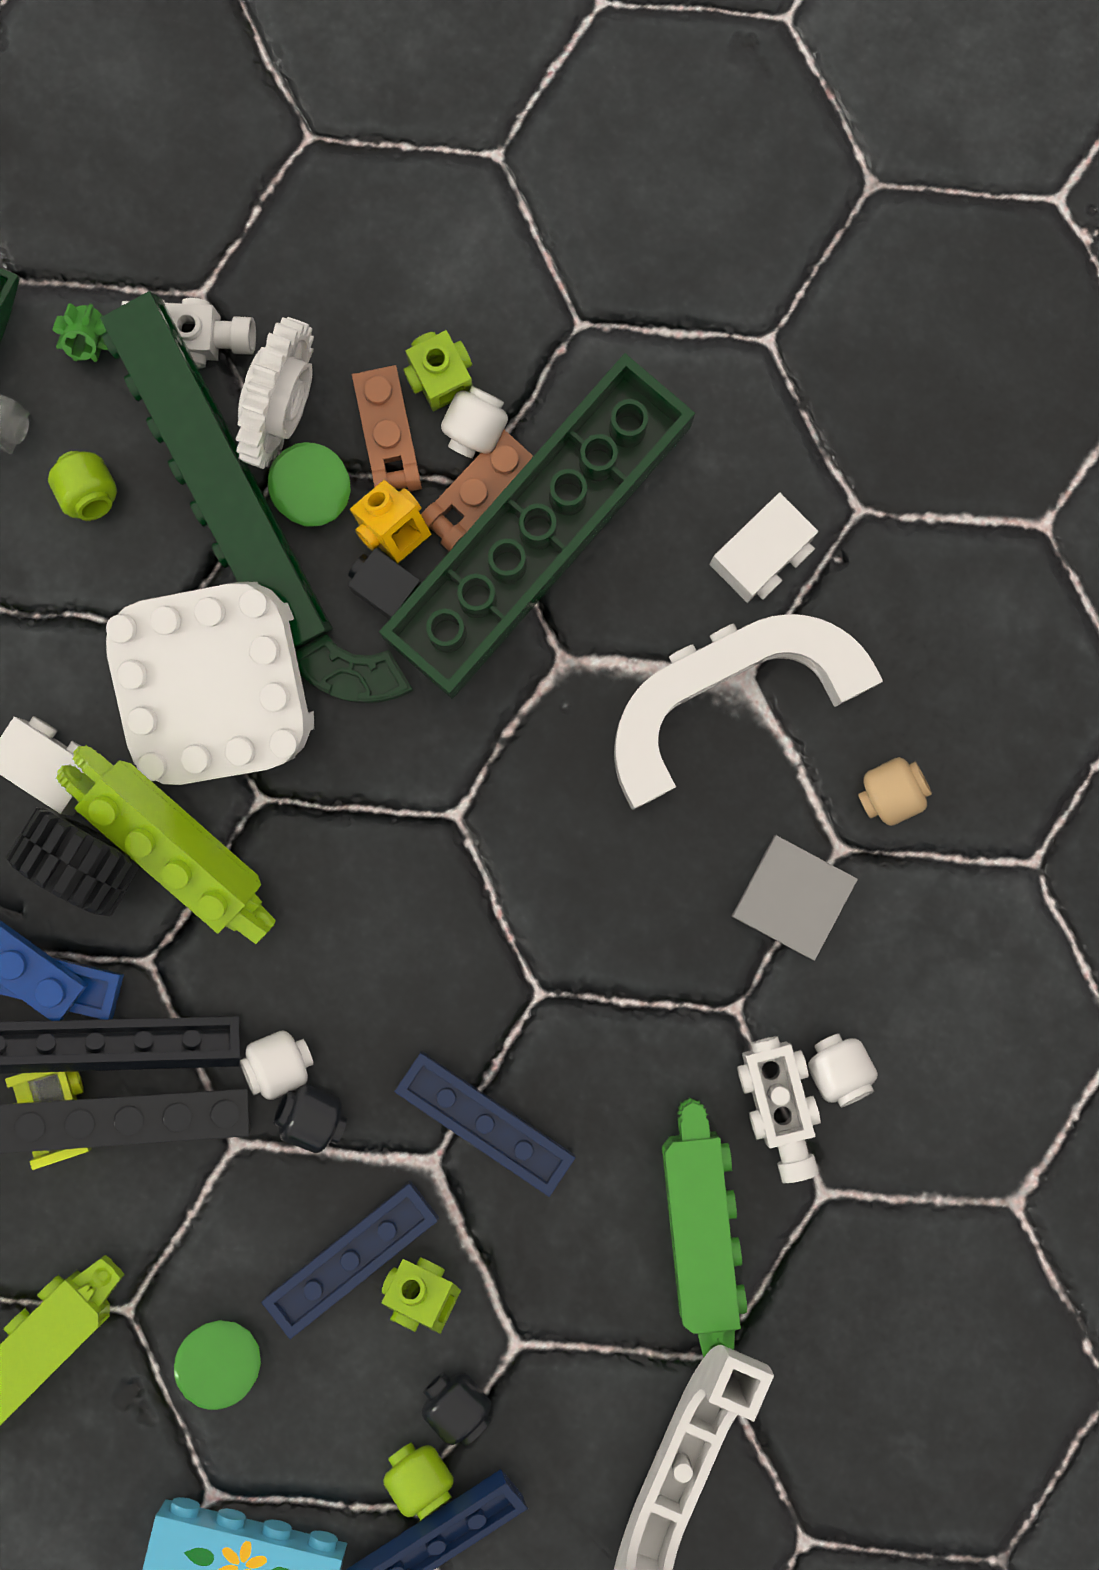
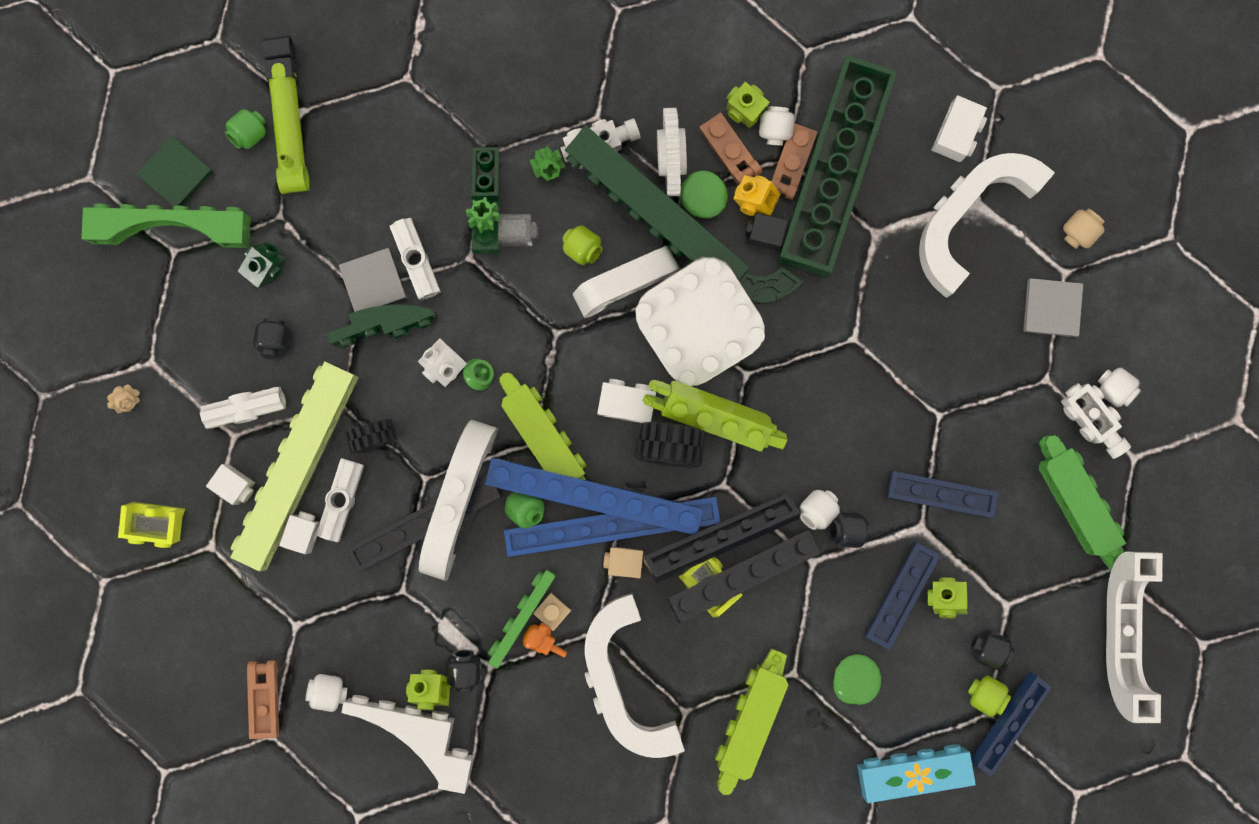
camera: 20 degrees left, 0 degrees up
(122, 568) = (624, 280): none -> white beam

